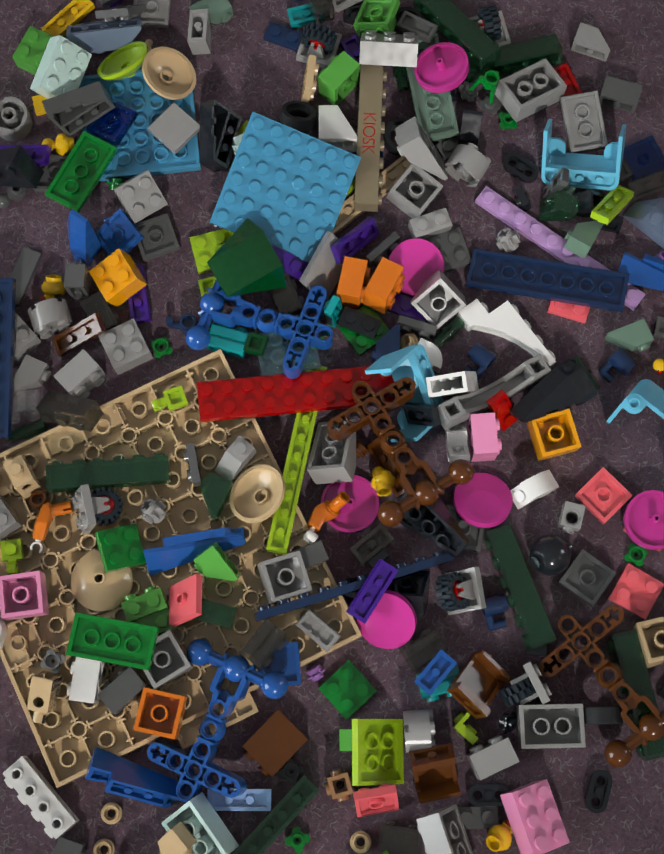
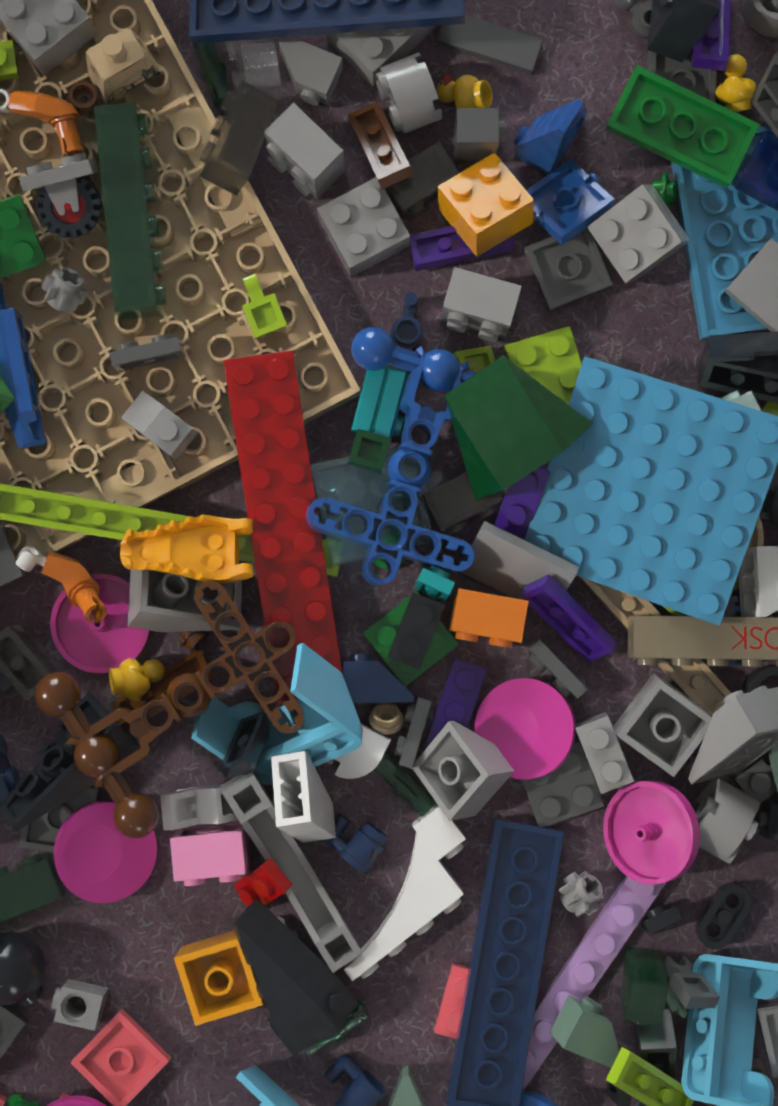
camera: 80 degrees right, 10 degrees up
(164, 341) = (370, 280): green plate -> none
(175, 282) = (479, 304): none -> light grey brick
(215, 493) = (96, 392): clear green slope -> none
(251, 488) = (95, 449): tan dish -> none
(308, 439) = (196, 548): none -> light orange animal
(384, 285) = (478, 672): orange brick -> none
(473, 200) = (651, 832): none -> dark pink piece
(533, 488) = (125, 941): white brick -> none

